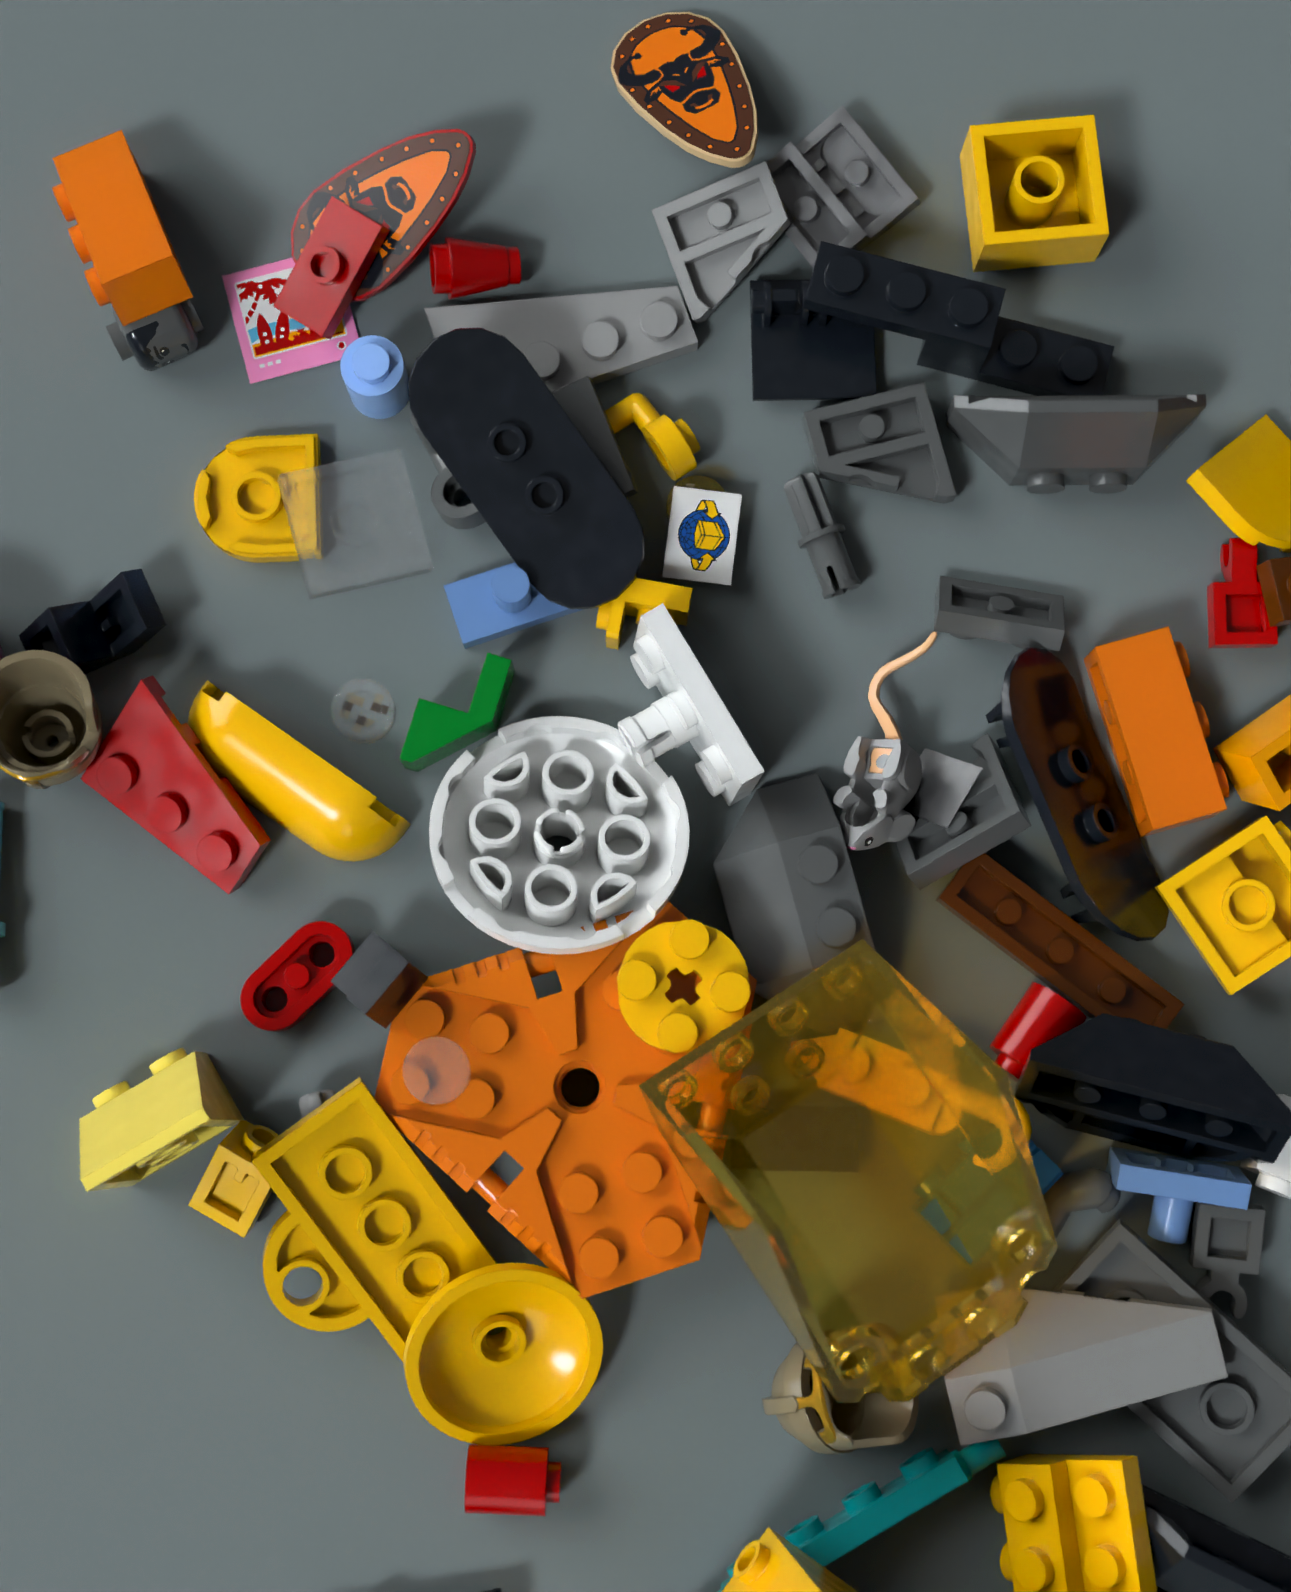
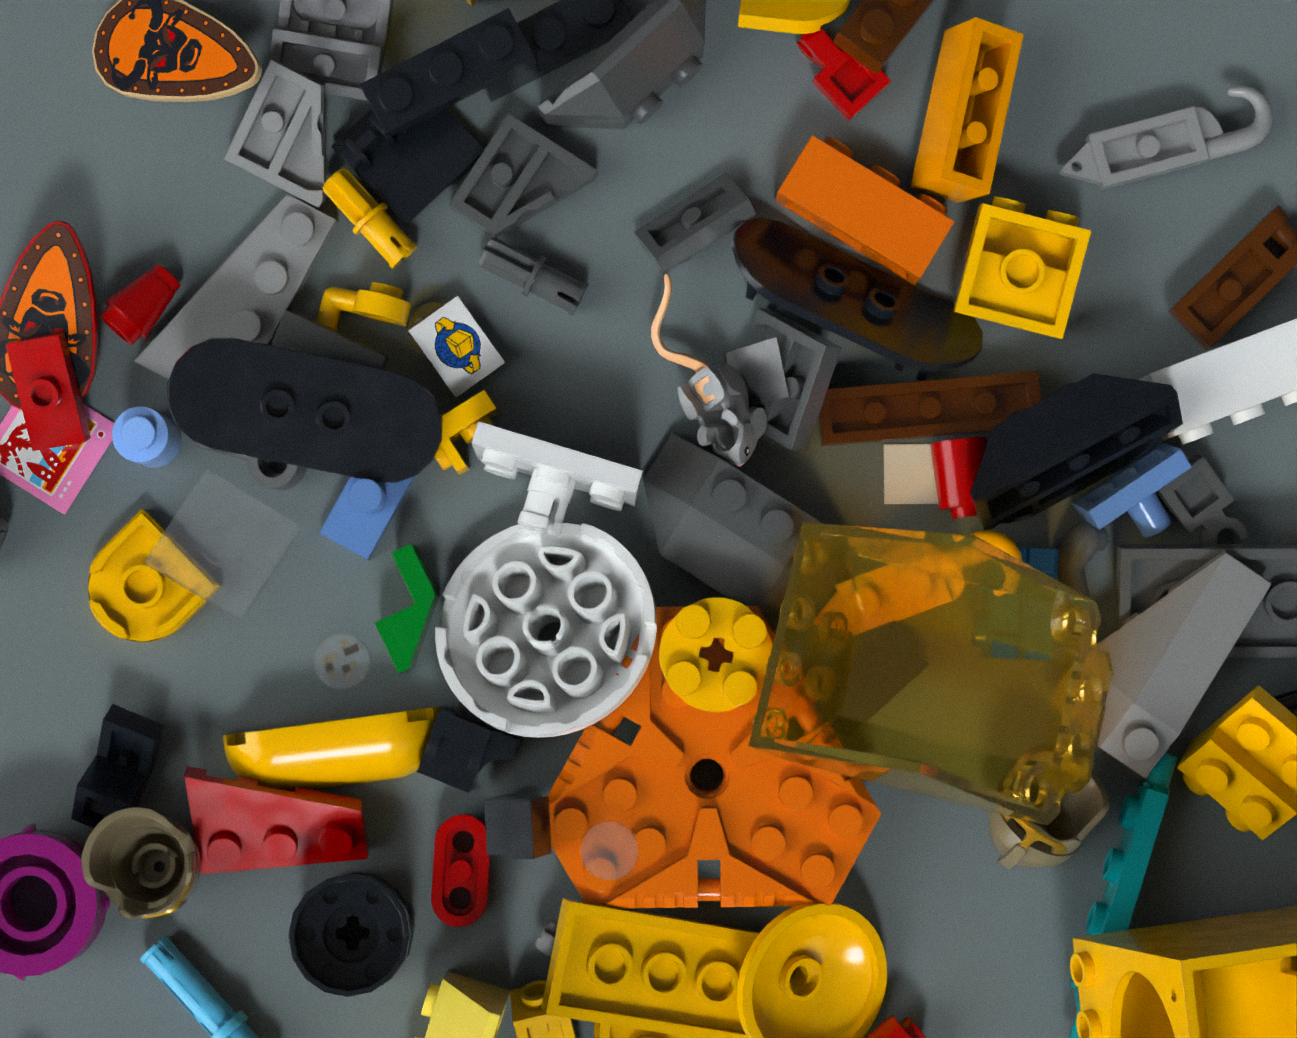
camera: 40 degrees left, 5 degrees up
(117, 947) = (328, 957): none -> black wheel
(396, 873) = (463, 746): none -> black brick
(727, 365) = (369, 217): none -> yellow axle
(989, 993) = (909, 474): none -> white sticker

